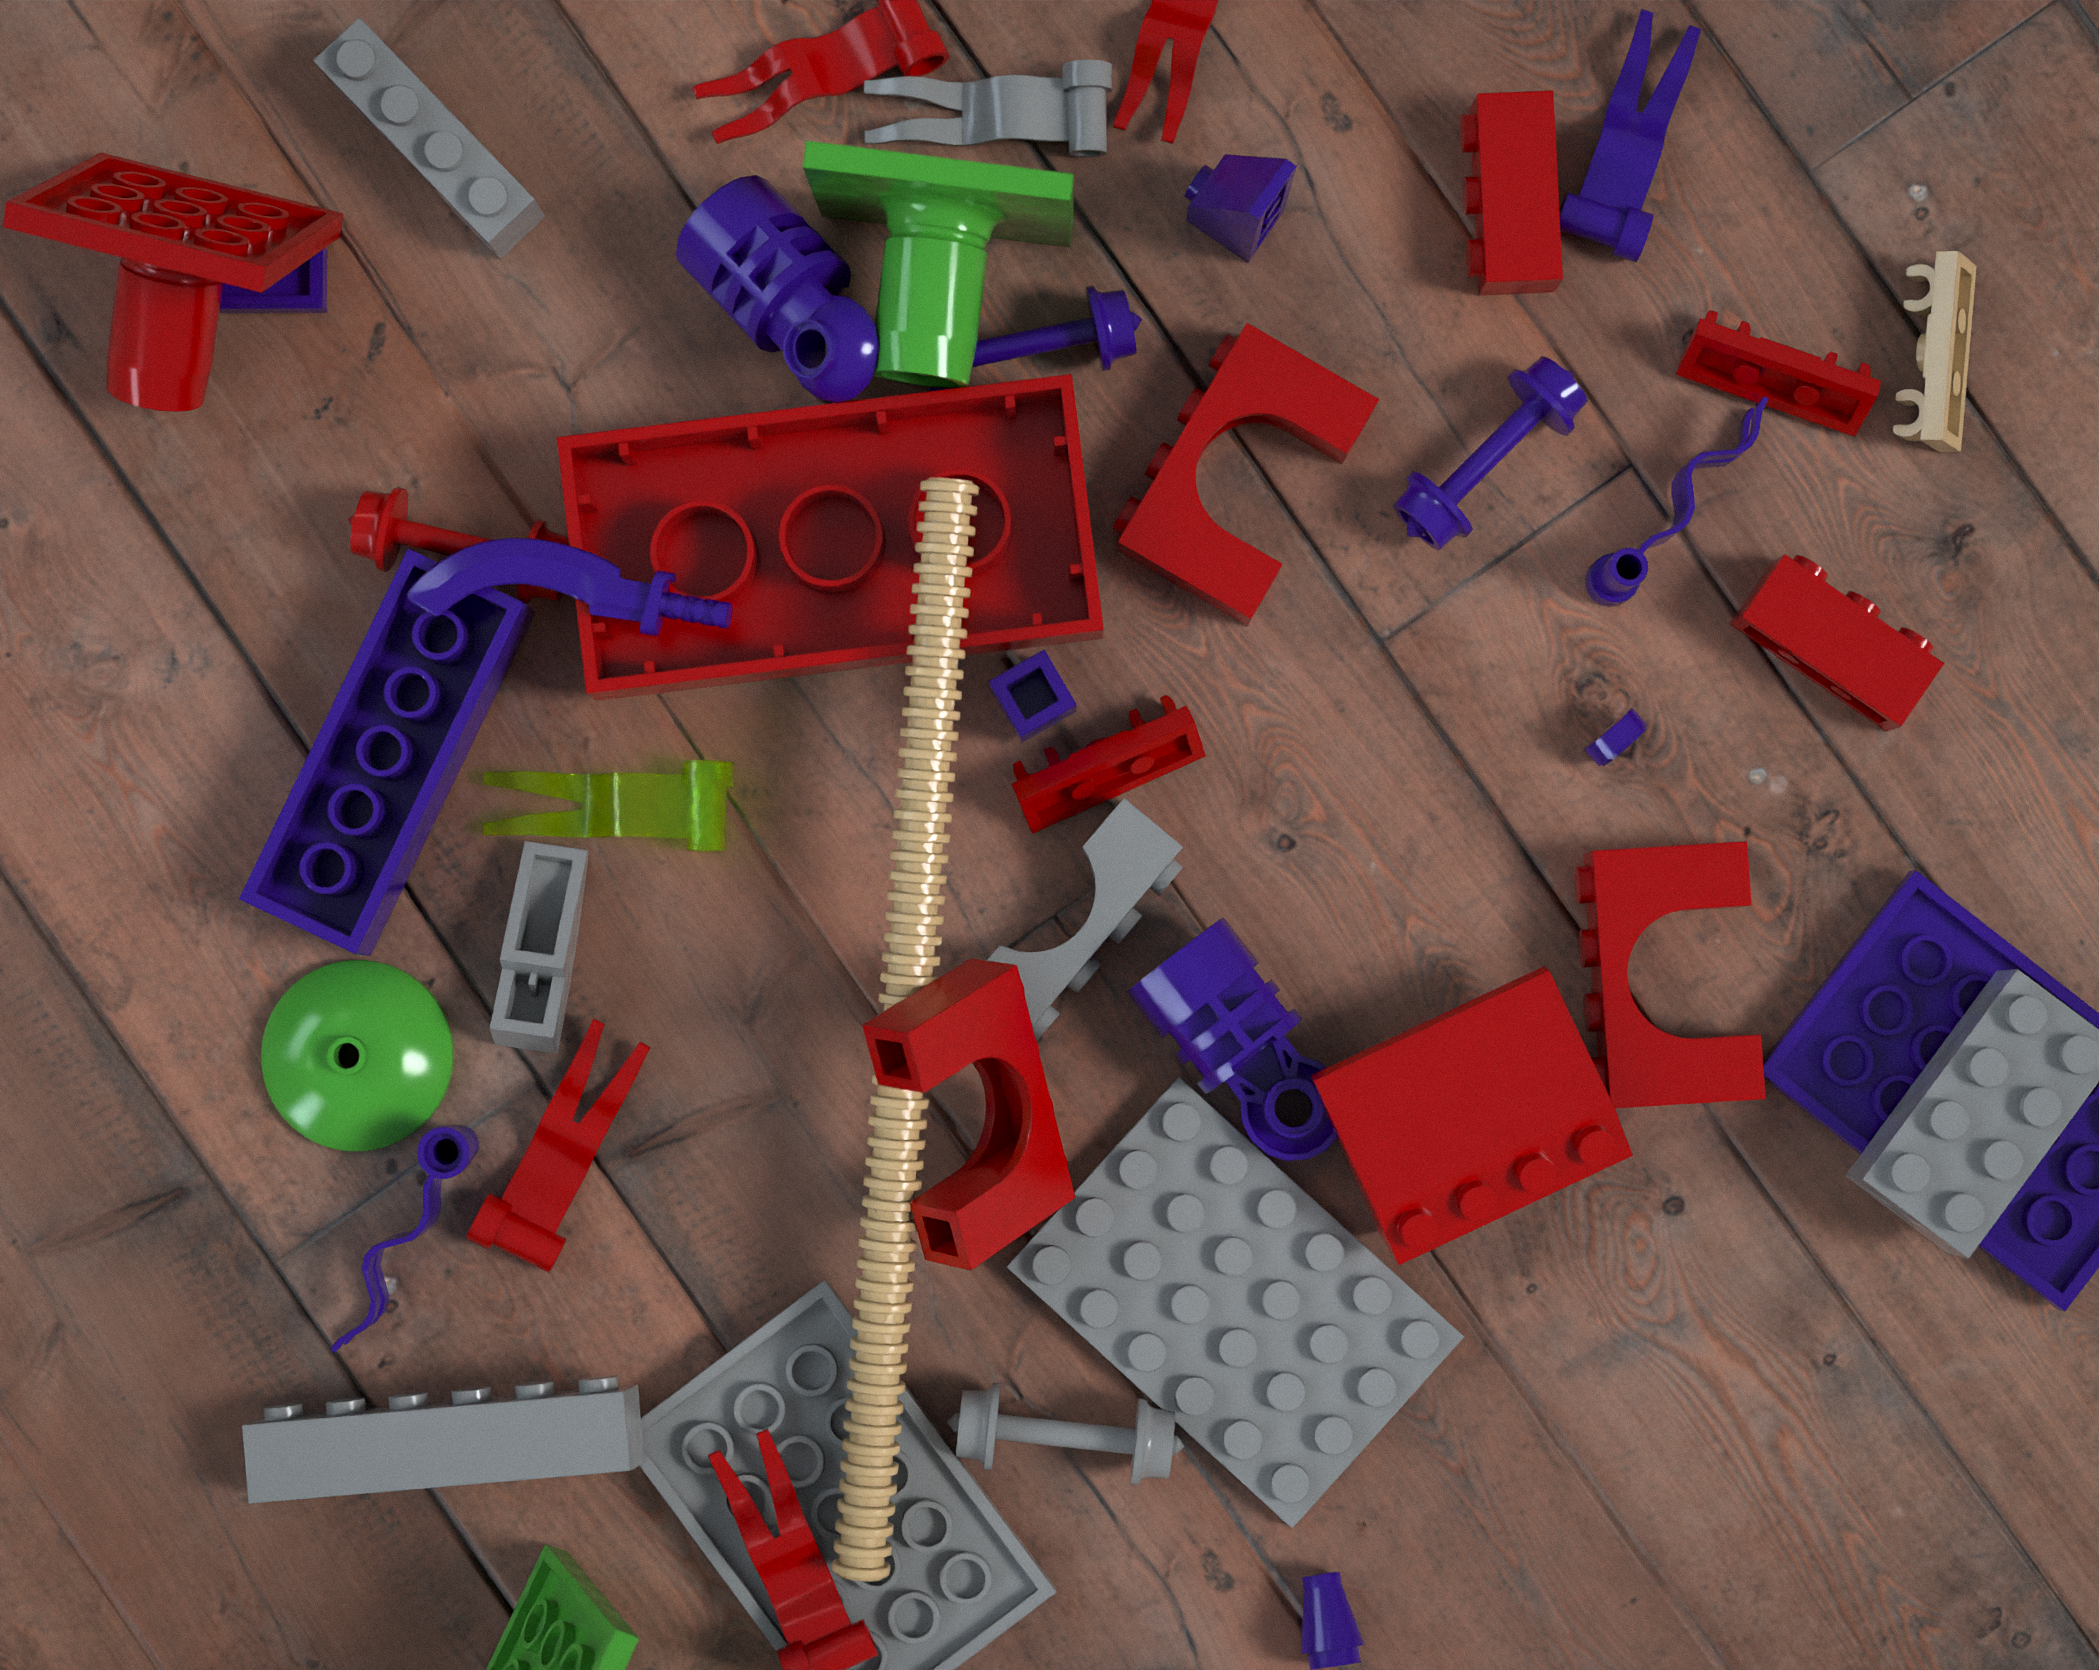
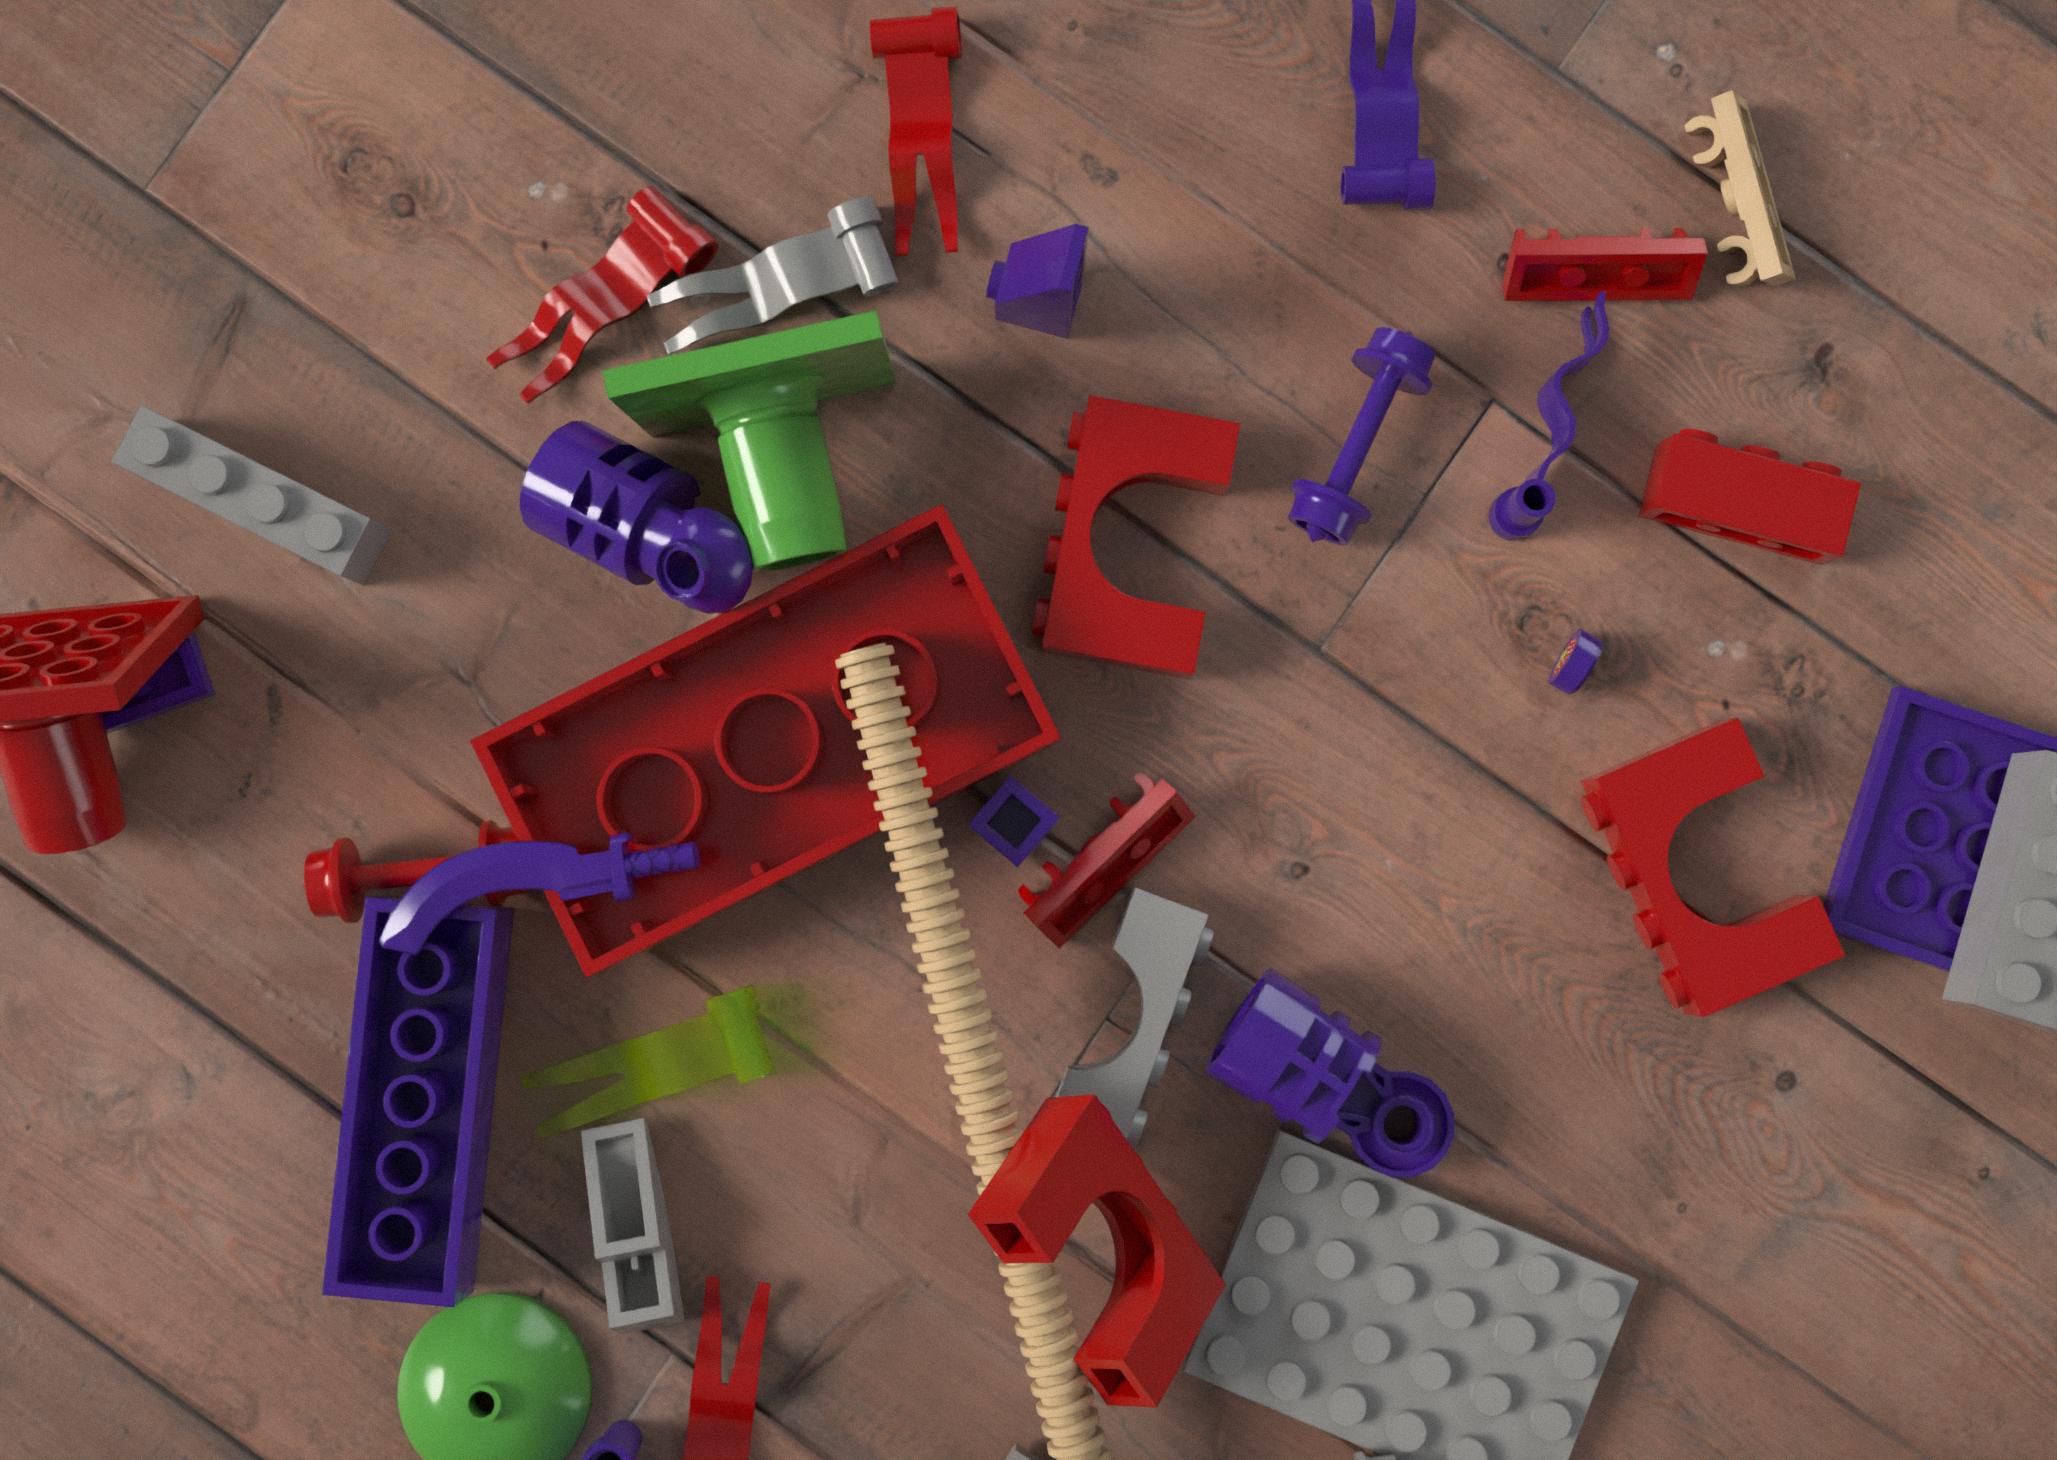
camera: 20 degrees left, 0 degrees up
(1109, 326) = (959, 445): dark purple piece -> none
(1471, 1115) = (1576, 1073): red slope -> none
(1512, 193) = (1293, 184): red brick -> none

